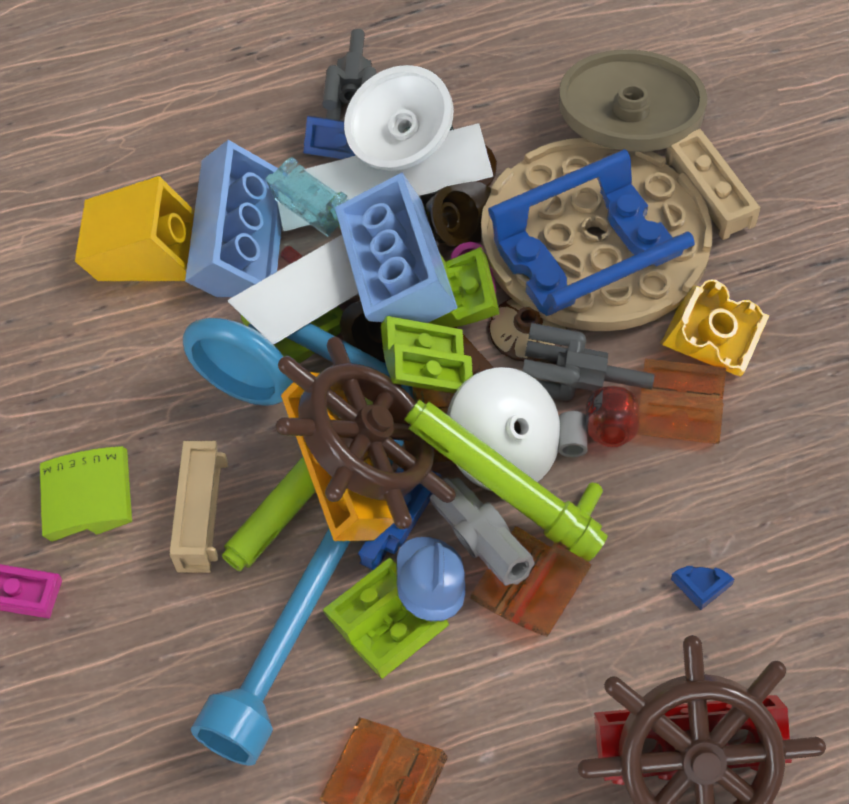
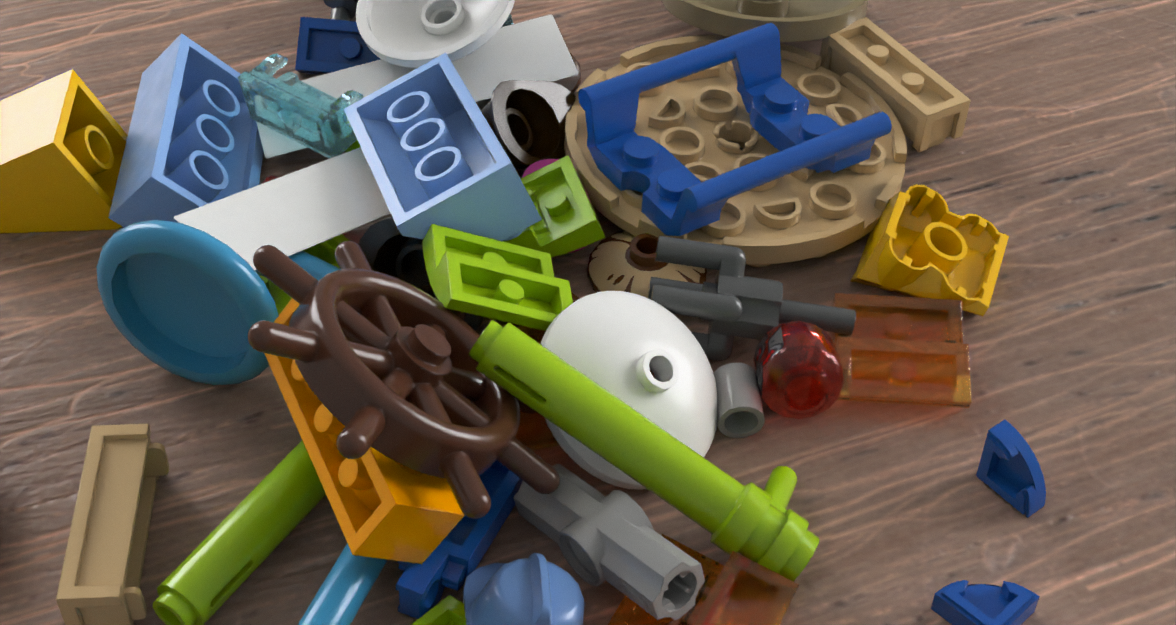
camera: 10 degrees left, 15 degrees down
(734, 493) = (1012, 469): none -> blue tile

